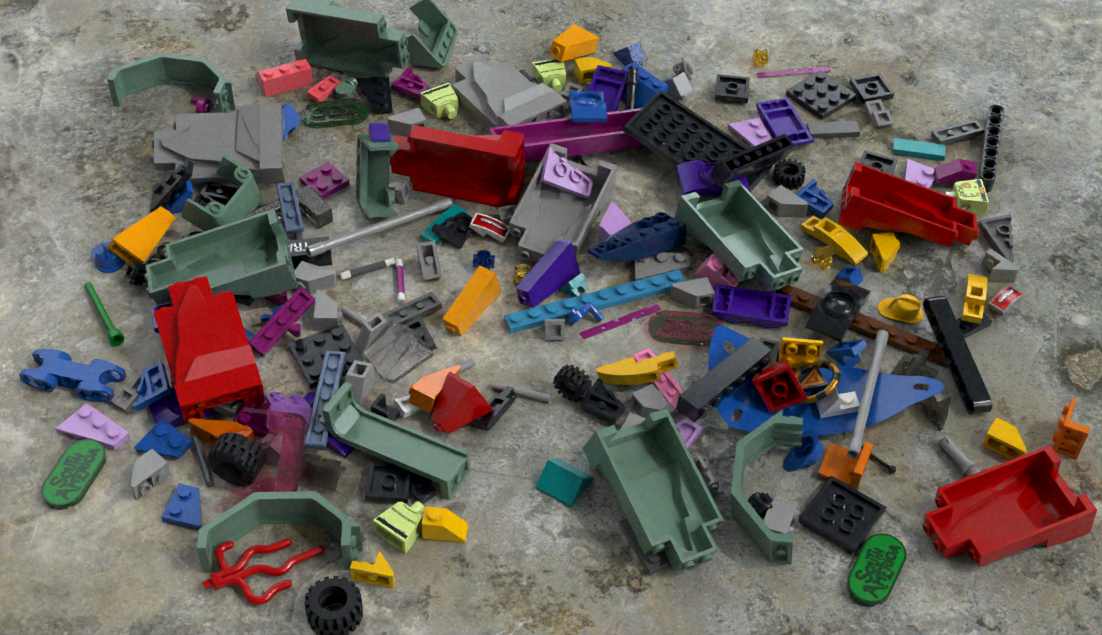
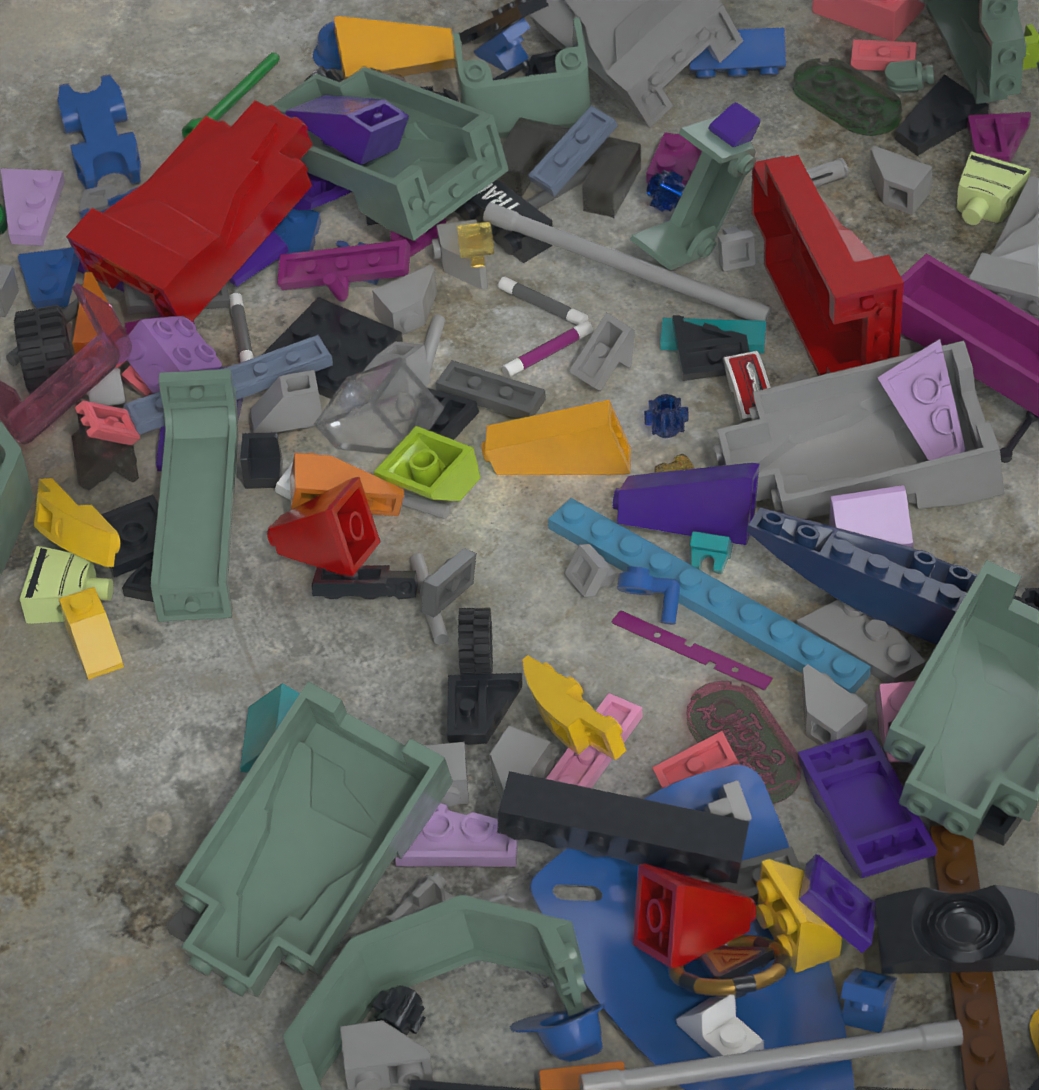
camera: 65 degrees right, 0 degrees up
(210, 261) = (354, 125): none -> dark purple slope
(284, 384) = (240, 327): none -> dark grey bar
(320, 452) = (109, 426): none -> coral tile
(327, 263) = (475, 242): none -> clear yellow tile
(337, 193) = (665, 190): none -> clear blue gear
(374, 498) = (74, 526): none -> yellow slope
(450, 348) = (431, 466): none -> lime slope
(526, 377) = (448, 582): none -> dark grey plate
(696, 346) = (705, 756): none -> coral plate
(733, 340) = (731, 802): none -> light grey tile
(805, 334) = (838, 902): none -> dark purple tile

